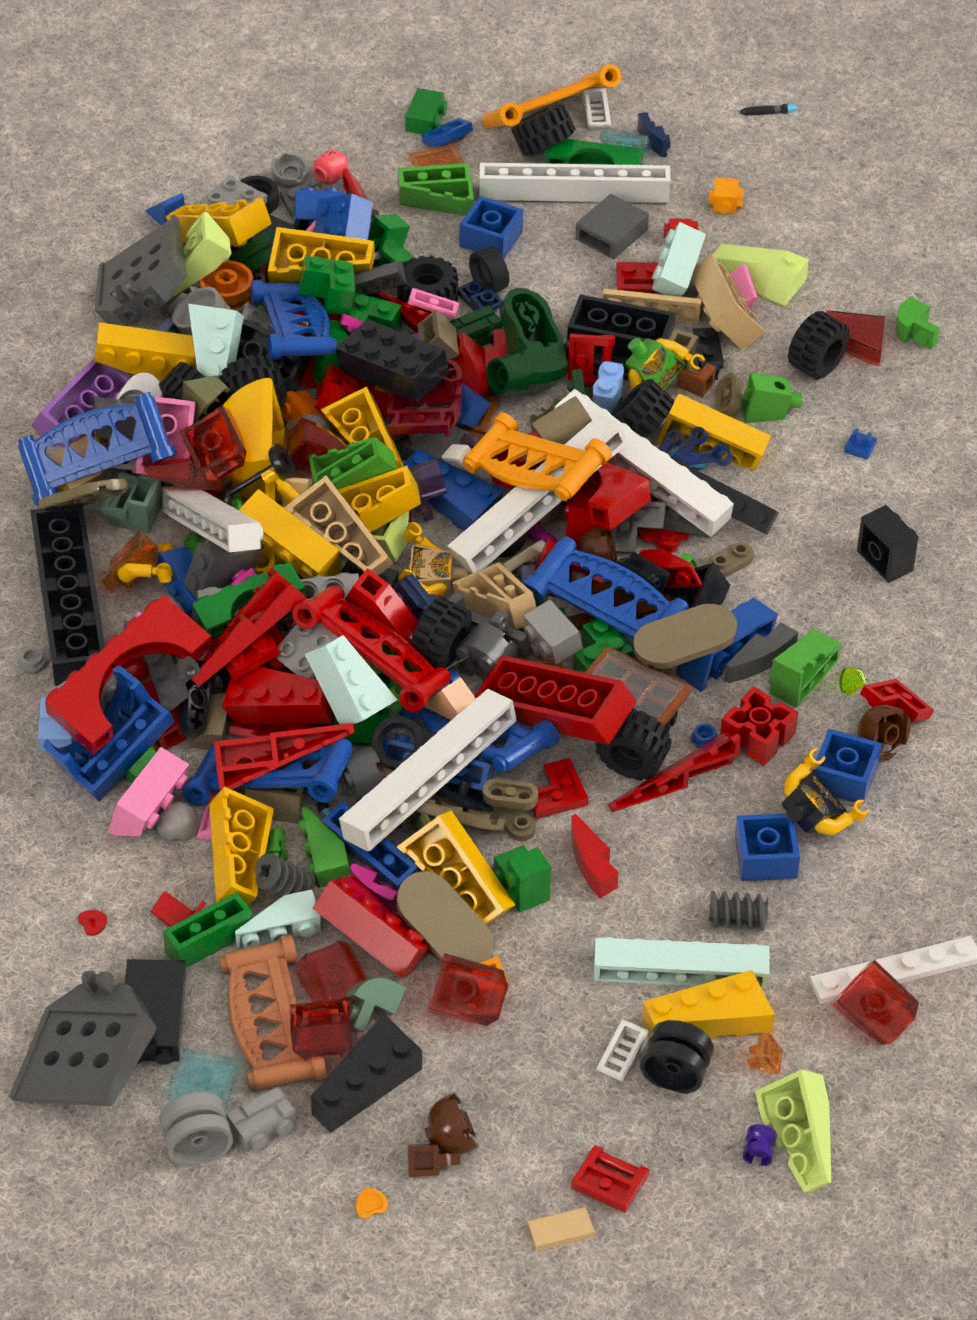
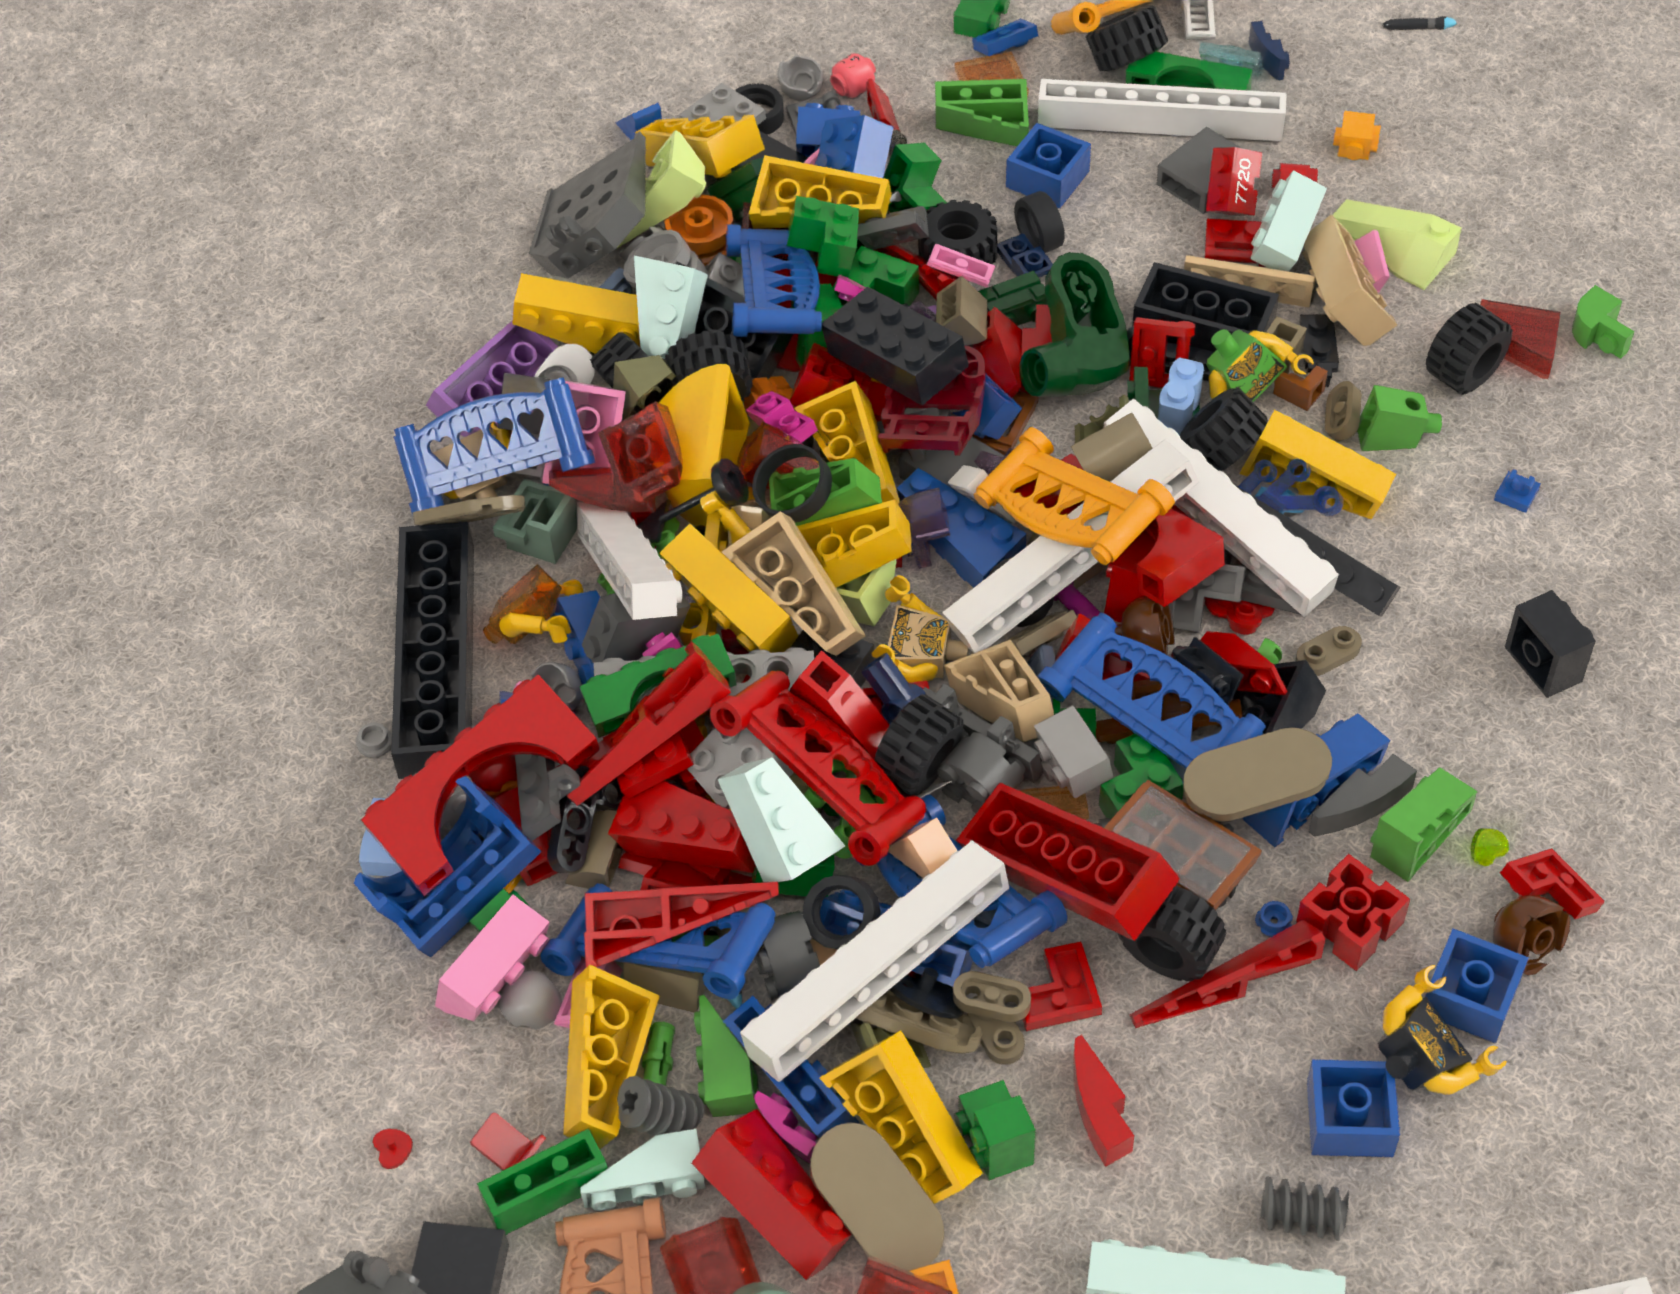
camera: 10 degrees right, 5 degrees up
(312, 411) = (780, 413): none -> dark pink slope
(322, 438) = (775, 460): none -> black tyre
(634, 233) = (1233, 181): none -> red brick

